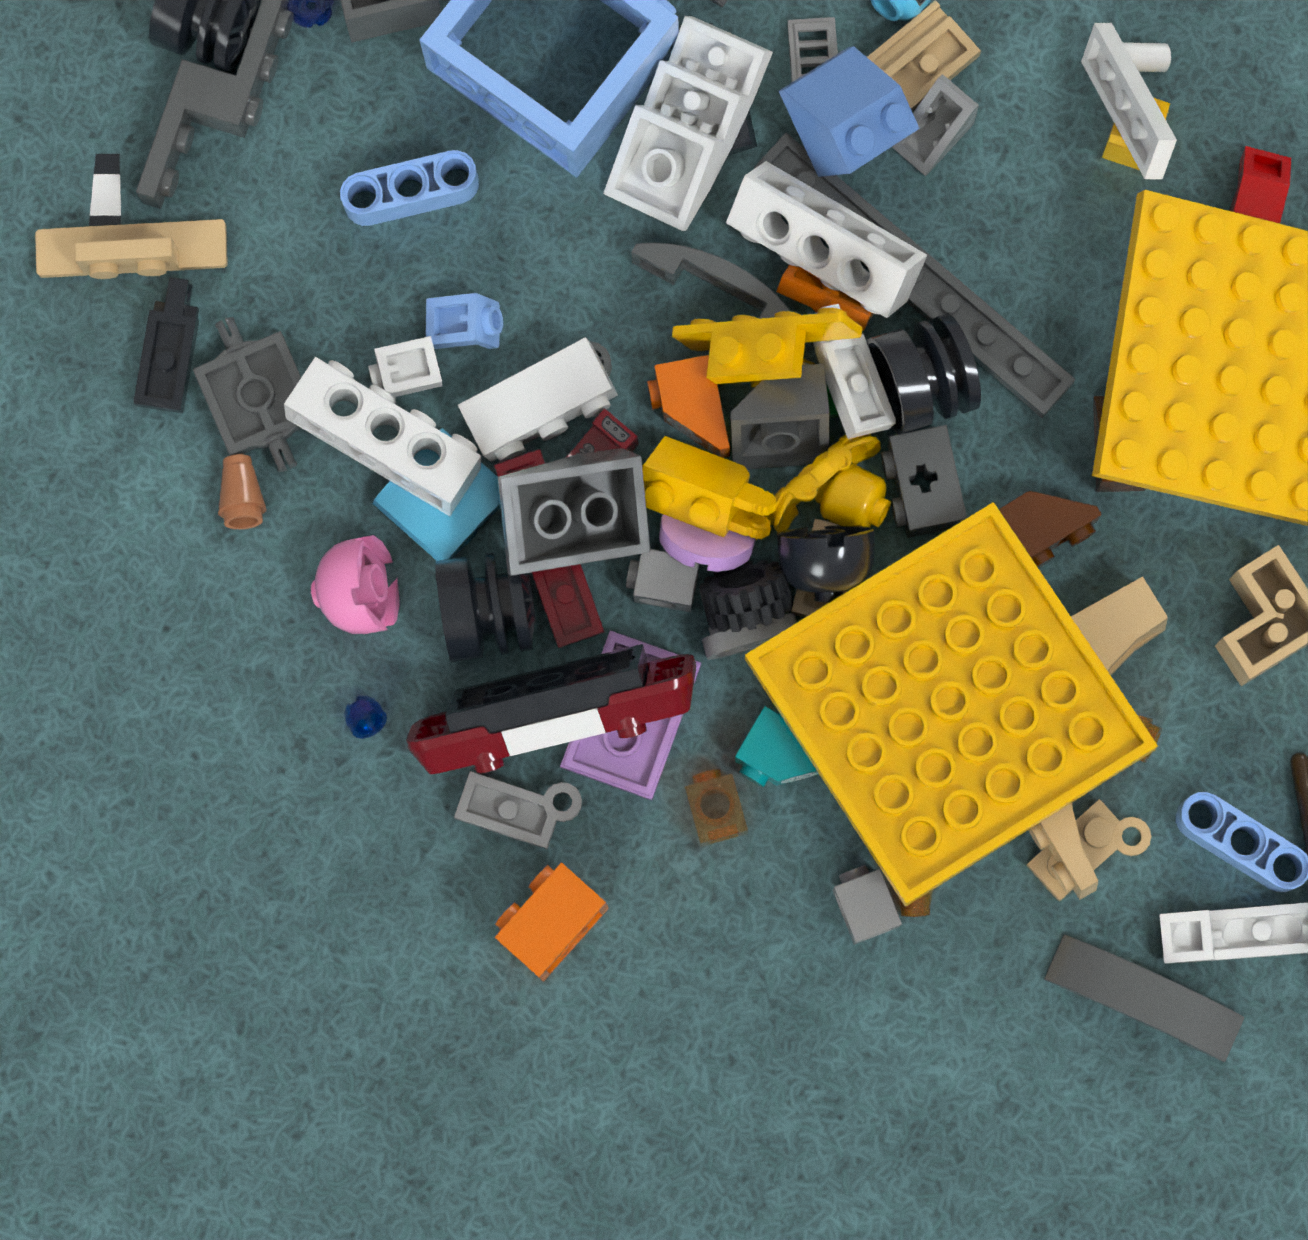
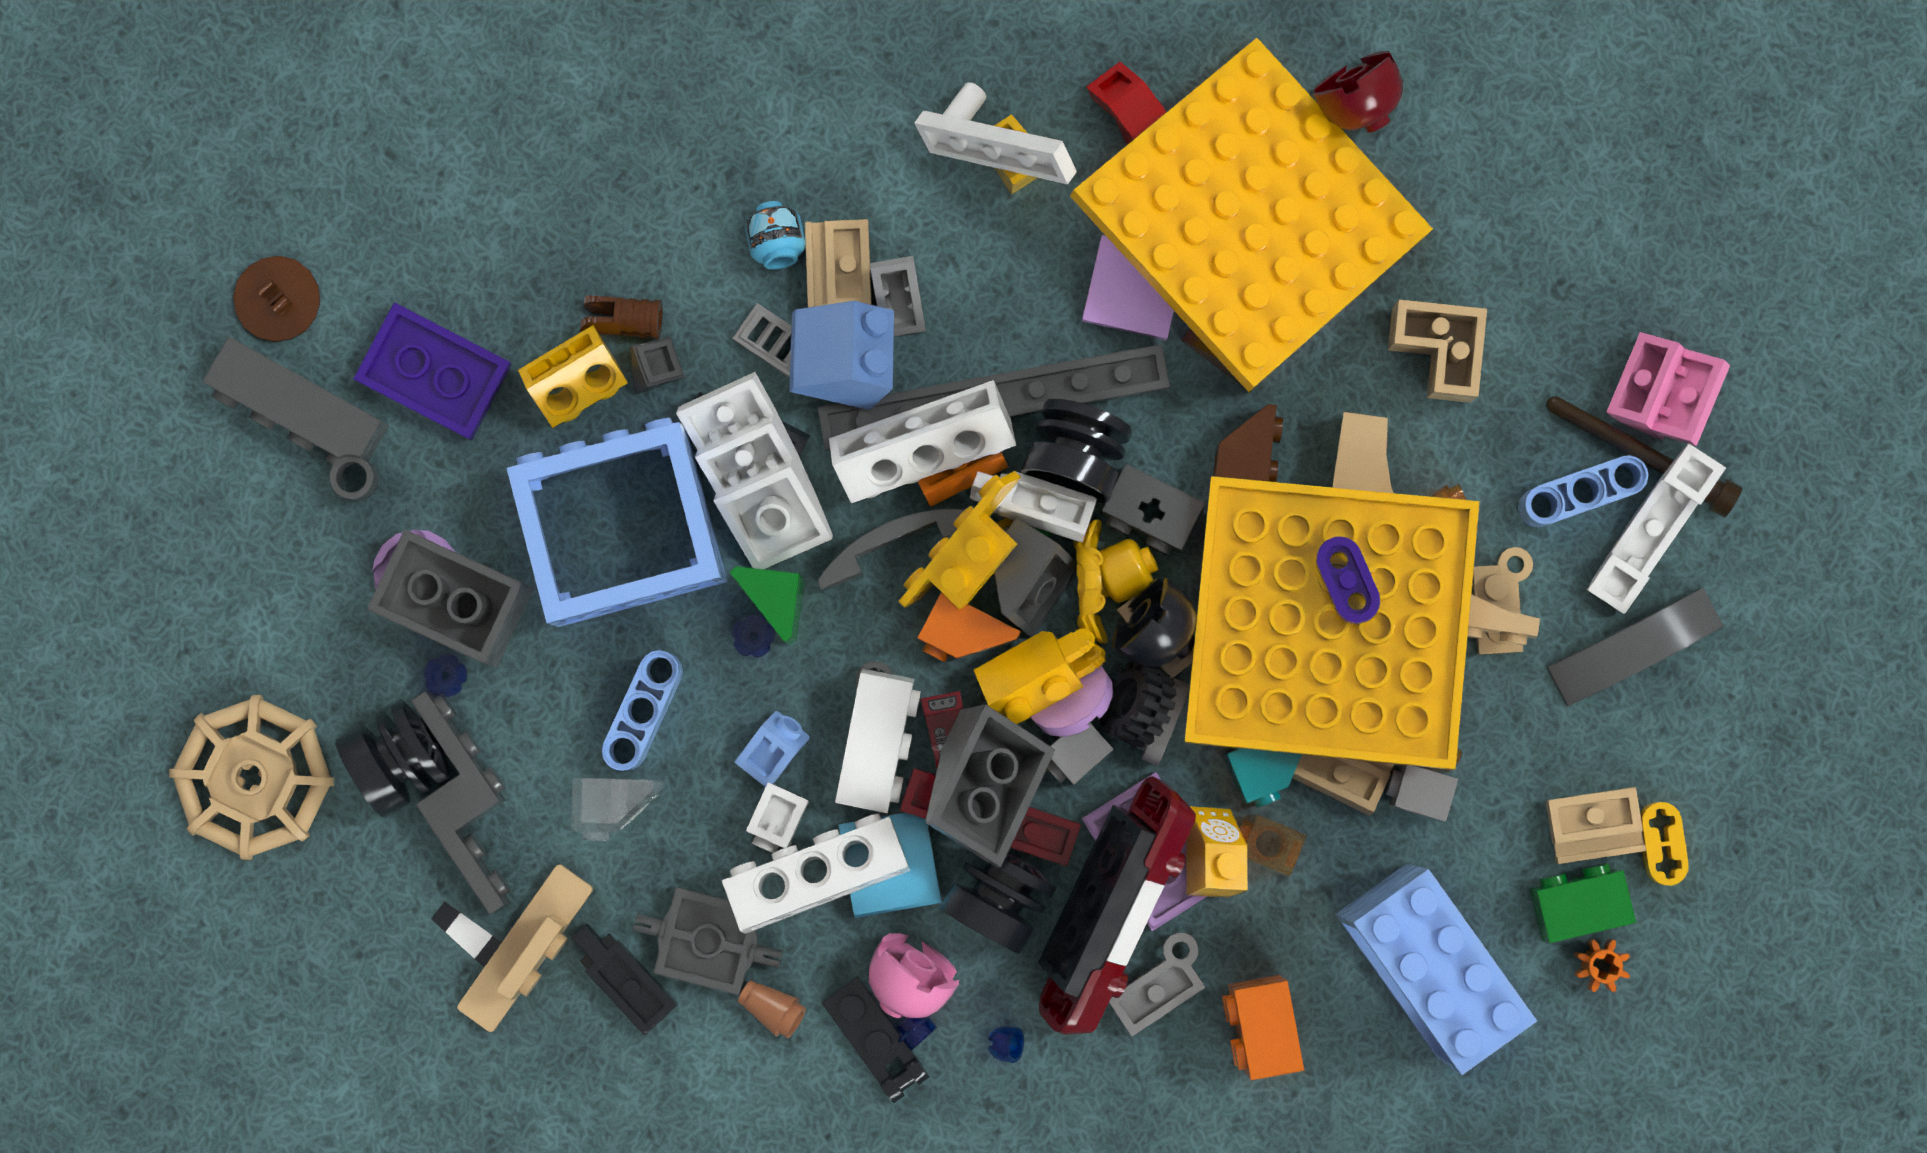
camera: 50 degrees left, 5 degrees up
(282, 601) = (874, 1038): none -> black plate
(309, 222) = (609, 804): none -> clear slope
(315, 630) = (915, 1031): none -> clear blue plate
(542, 221) = (742, 631): none -> clear blue plate
(595, 220) = (776, 596): none -> green slope
(668, 764) = (1215, 855): none -> yellow slope
(718, 1019) = (1436, 967): none -> light blue window
(824, 829) = (1346, 780): none -> tan plate
(851, 1190) = (1592, 972): none -> orange gear
(879, 1123) = (1582, 904): none -> green brick
(958, 1082) = (1595, 825): none -> tan plate
(994, 683) = (1350, 580): none -> dark purple plate
(999, 1165) = (1674, 844): none -> yellow beam
(1087, 318) = (1124, 298): none -> lavender tile

